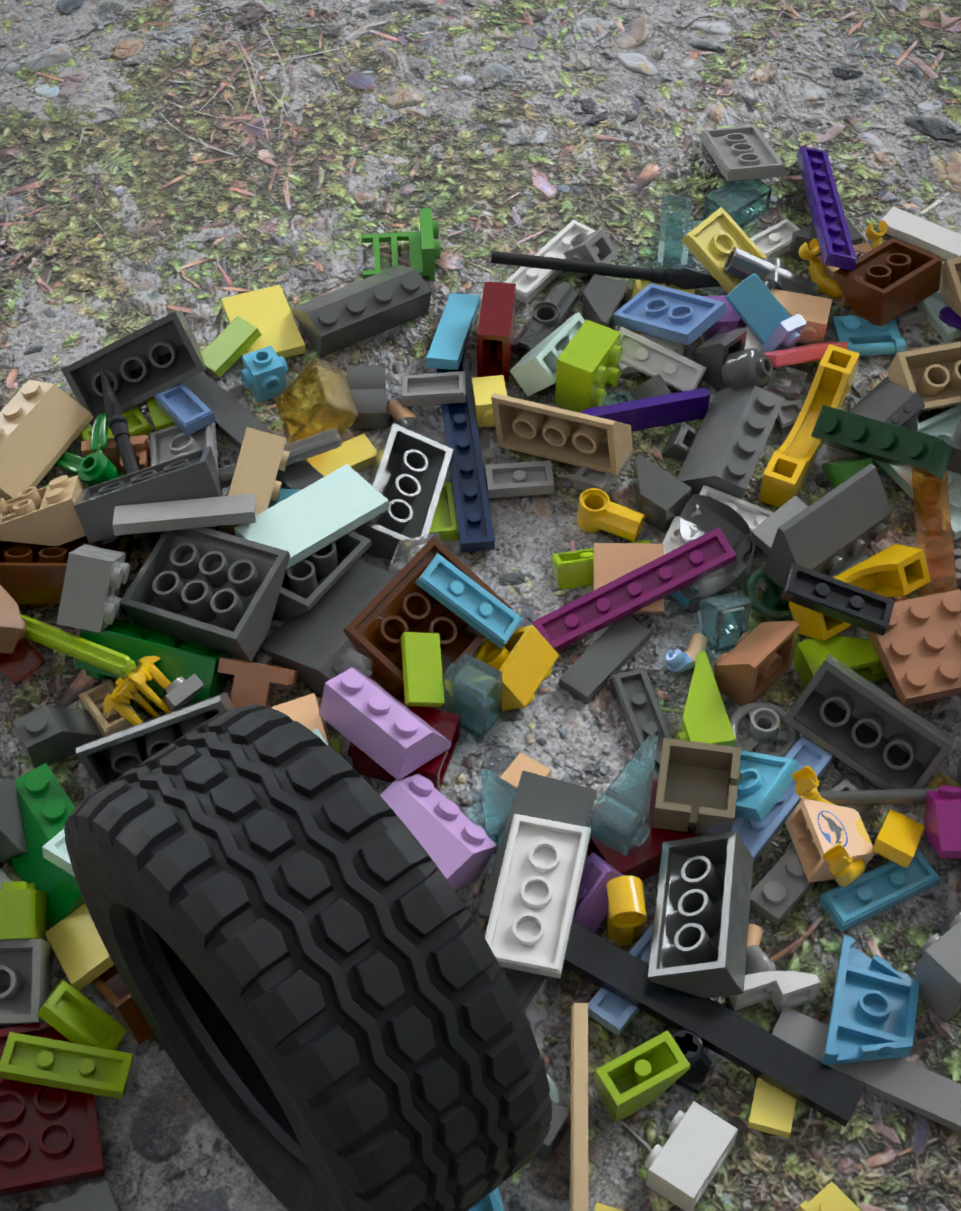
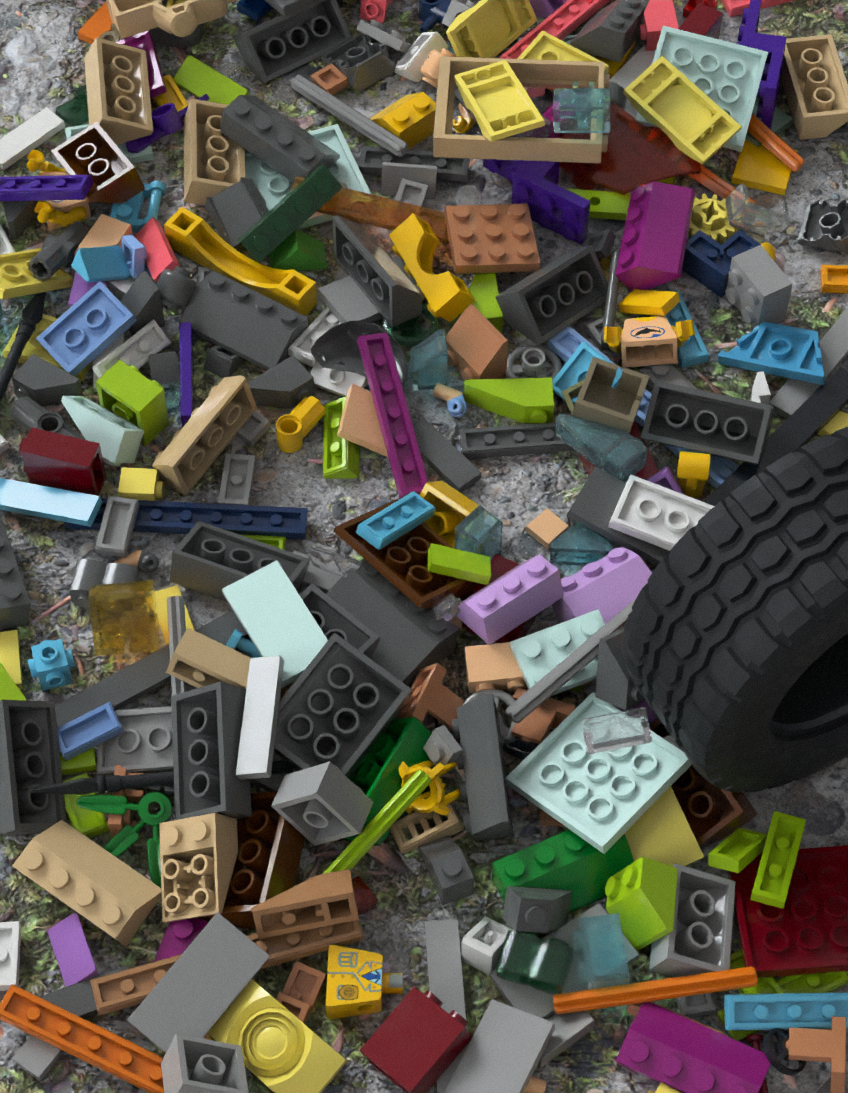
camera: 80 degrees left, 5 degrees up
(837, 599) = (456, 273): black tile -> none

